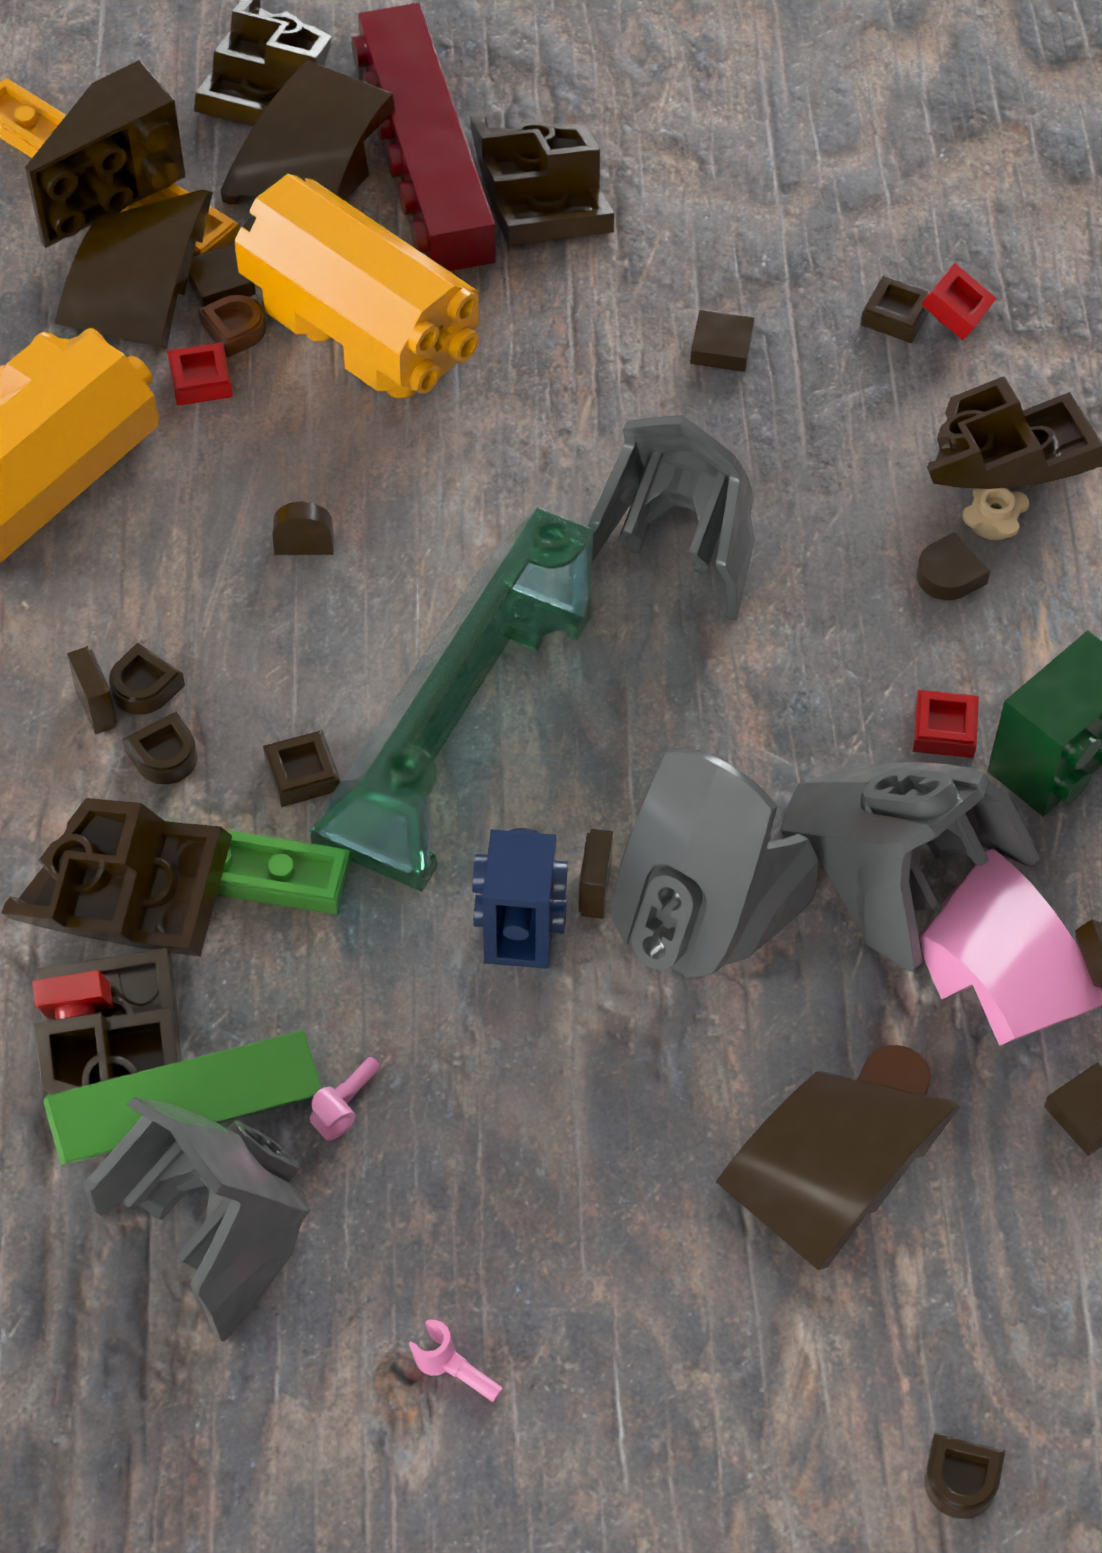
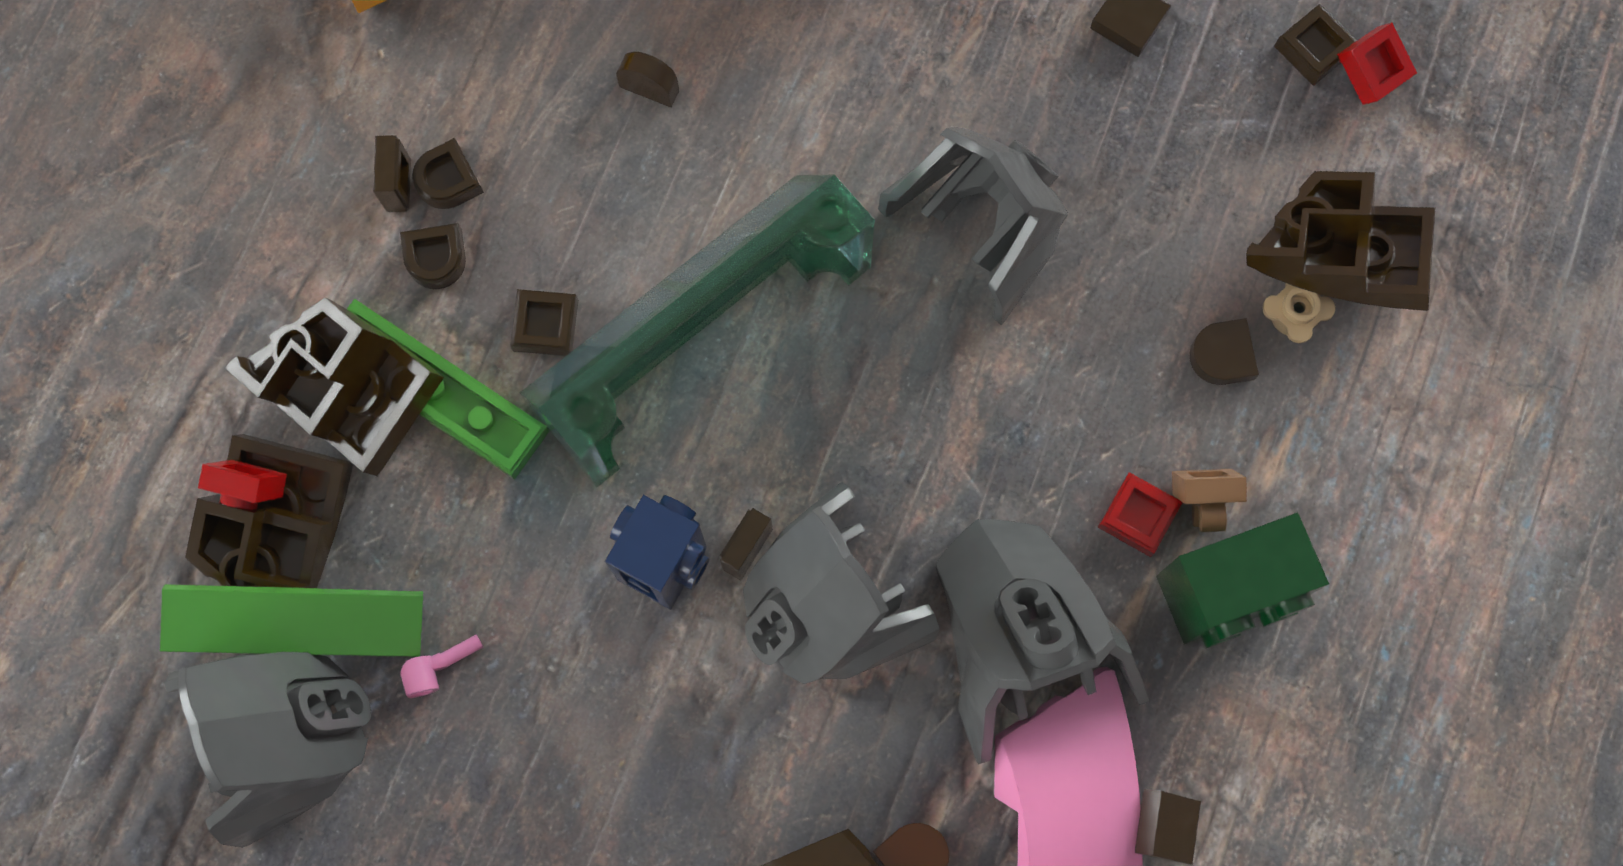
camera: 25 degrees right, 20 degrees up
(997, 675) = (1208, 494): none -> medium nougat tile

